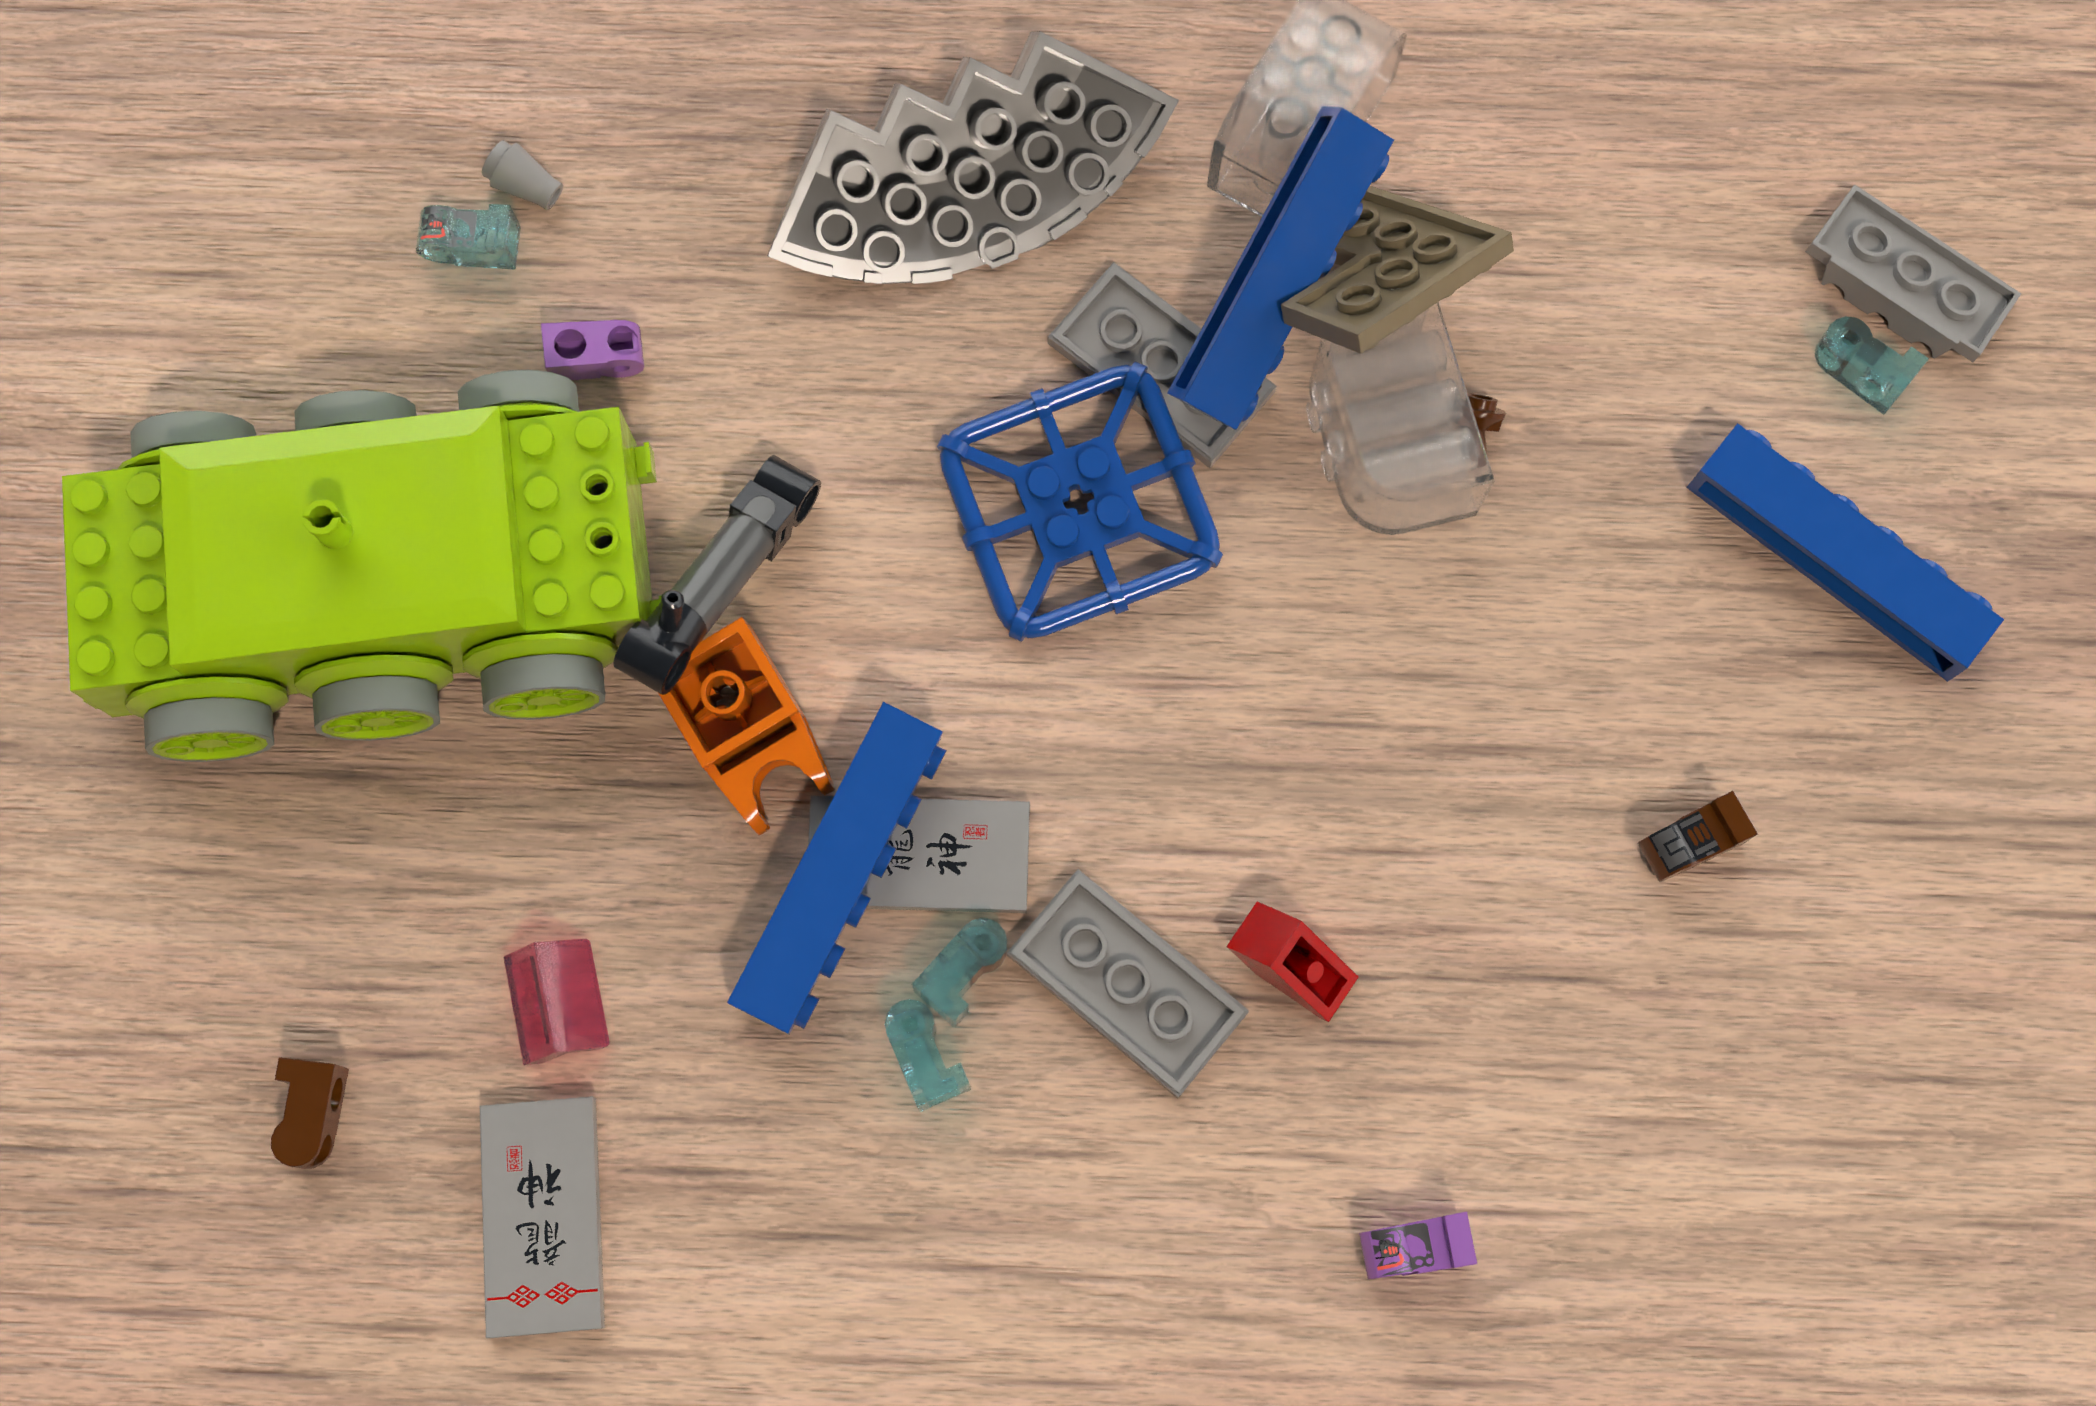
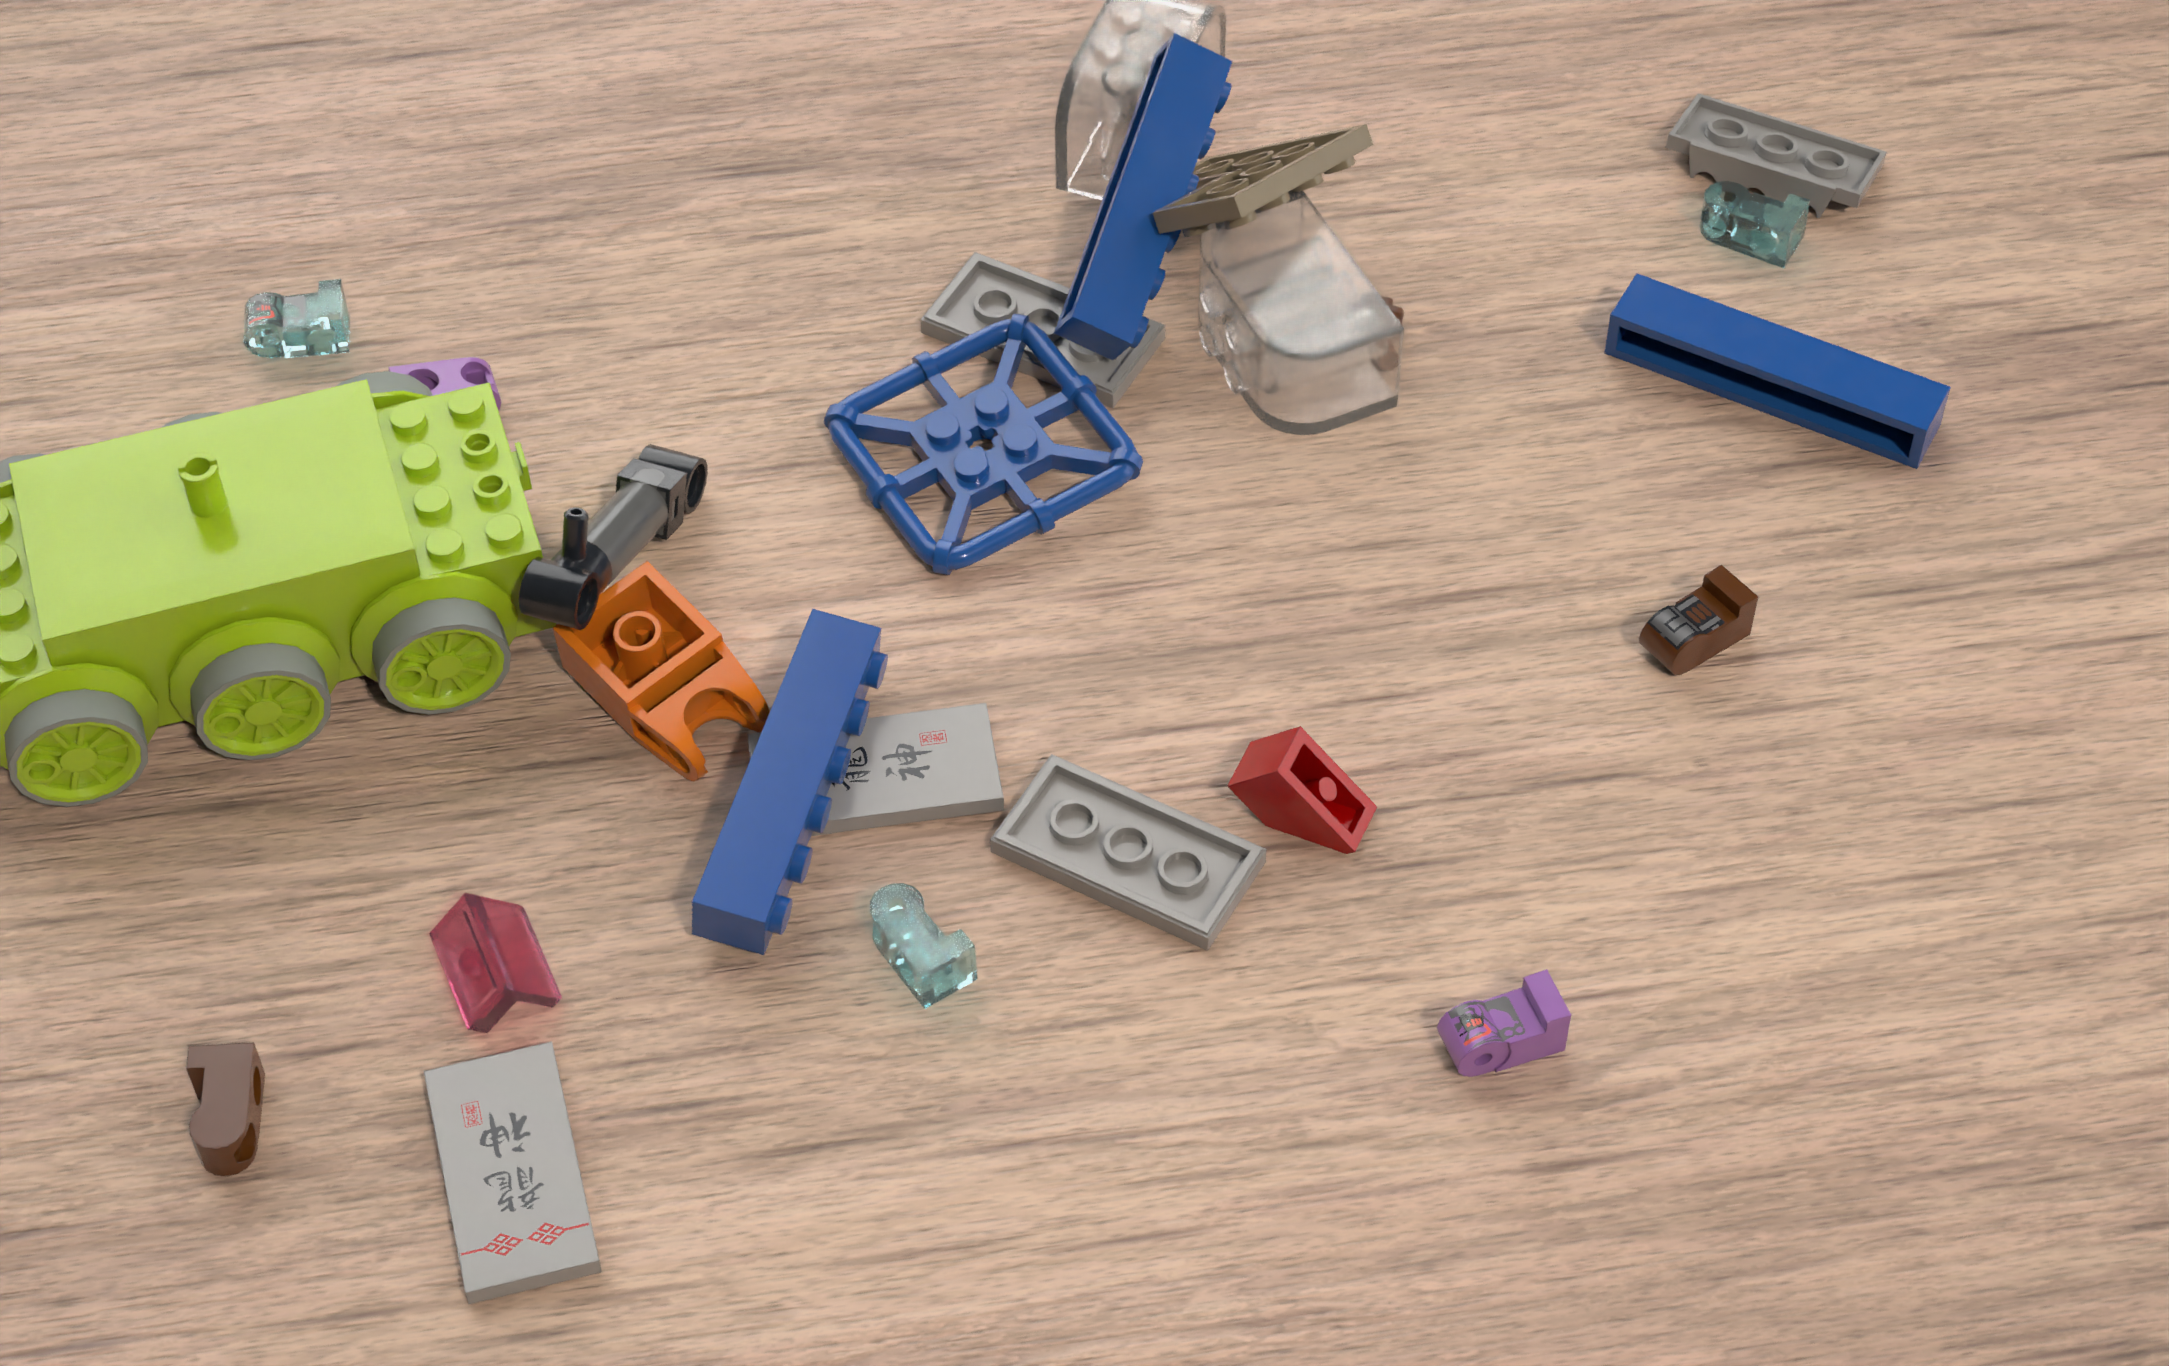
camera: 10 degrees left, 25 degrees down
(519, 174) = (338, 259): light grey cone -> none
(969, 176) = (811, 198): light grey brick -> none
(972, 952) = (943, 854): clear light blue leg -> none

